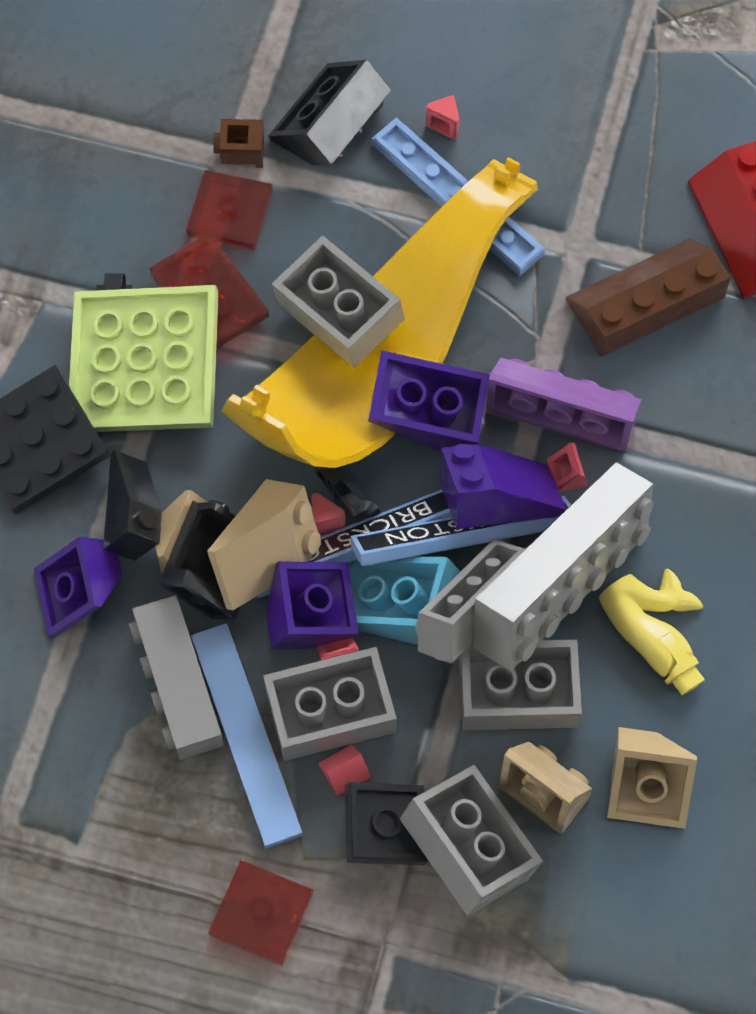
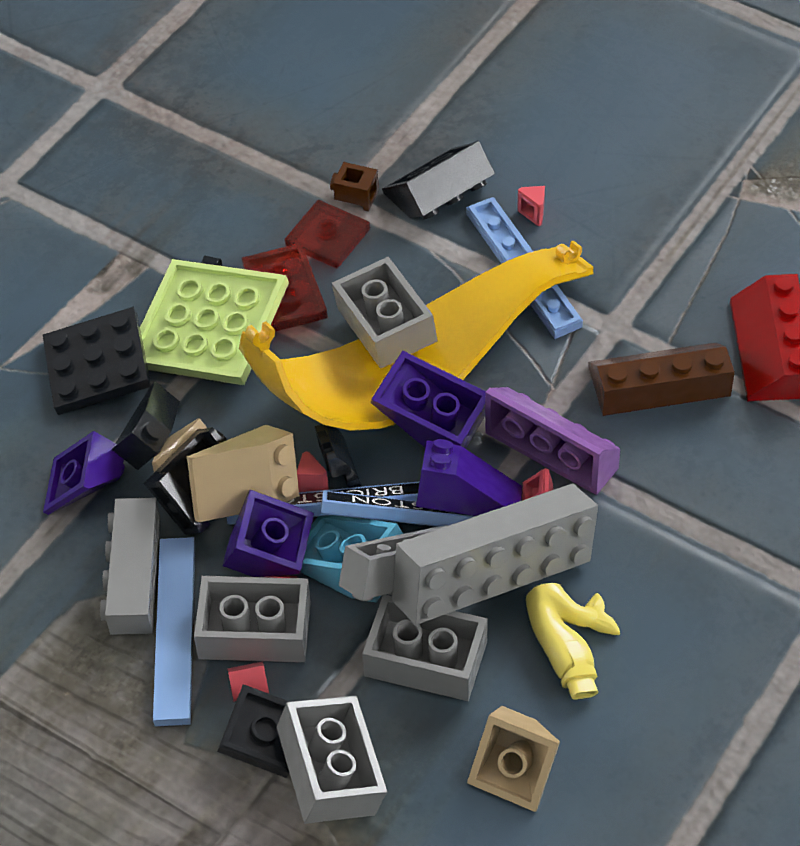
camera: 20 degrees right, 15 degrees down
(261, 912) = (128, 775): clear red plate -> none
(543, 785) = (413, 731): tan slope -> none

